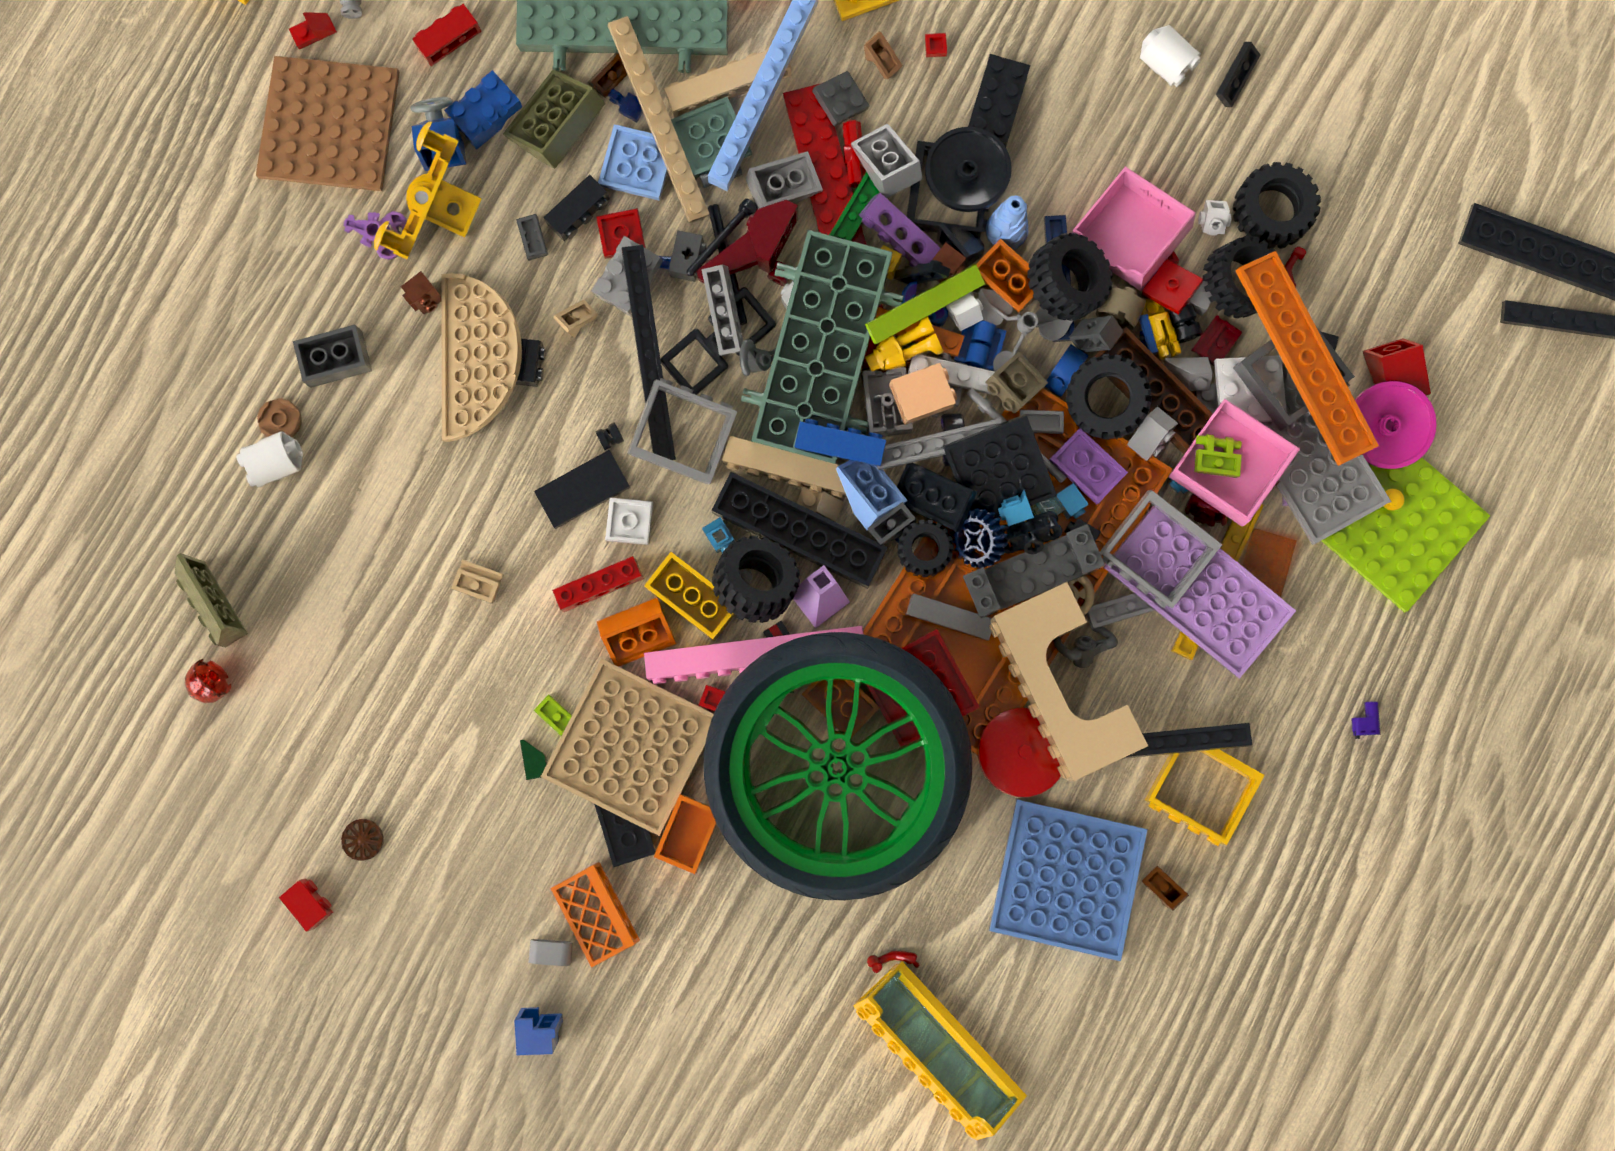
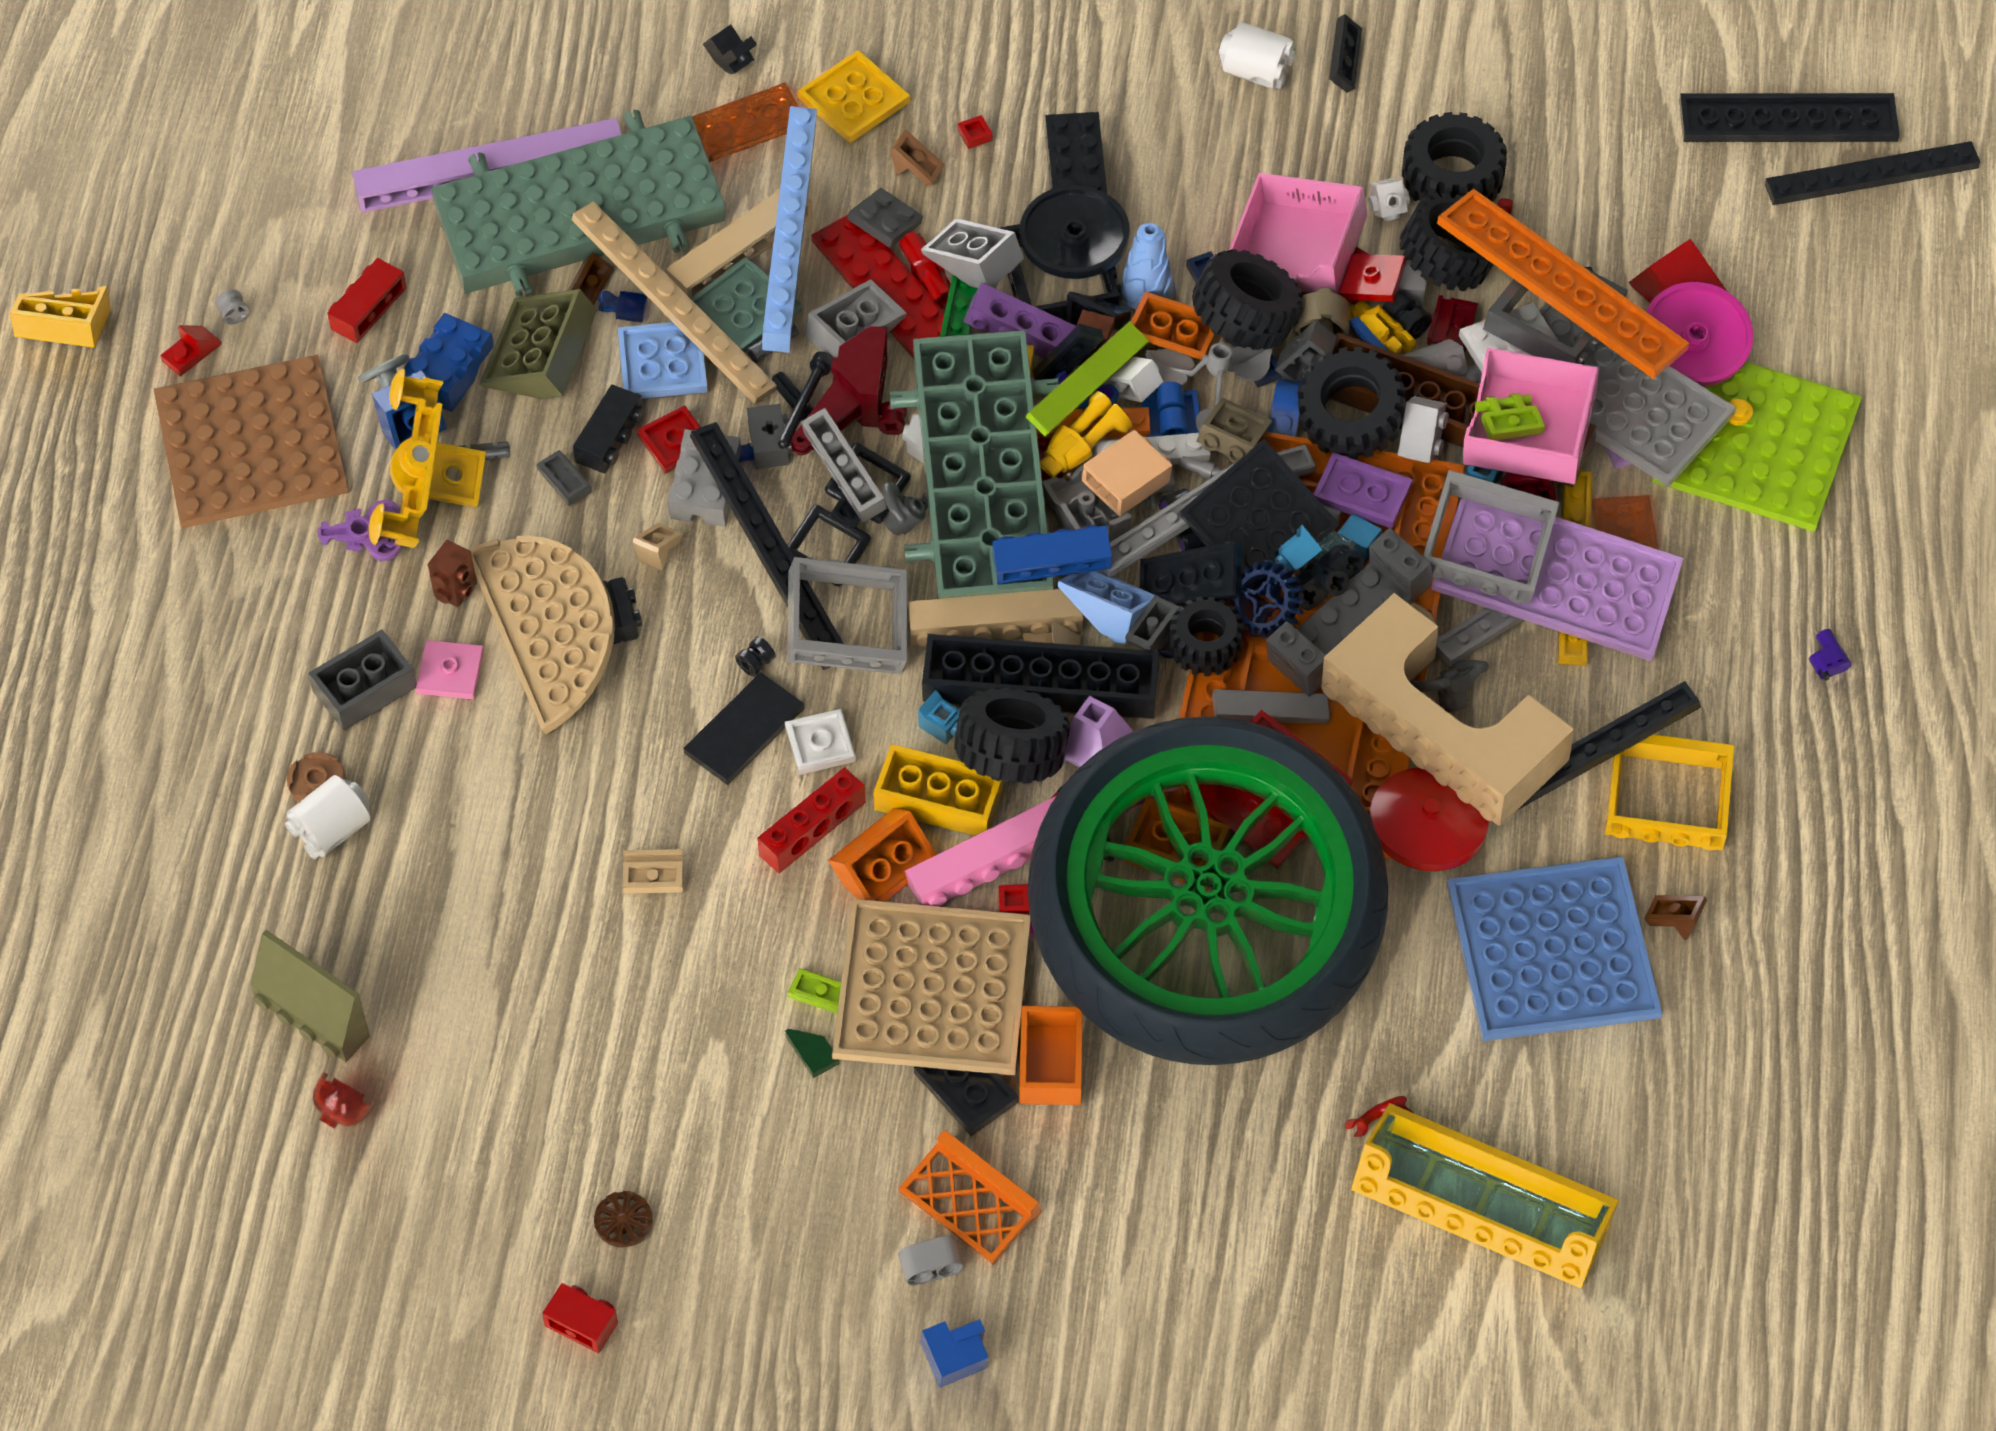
camera: 25 degrees left, 25 degrees down
(399, 365) = (449, 669): none -> bright pink plate
(485, 193) = (502, 449): none -> dark grey axle

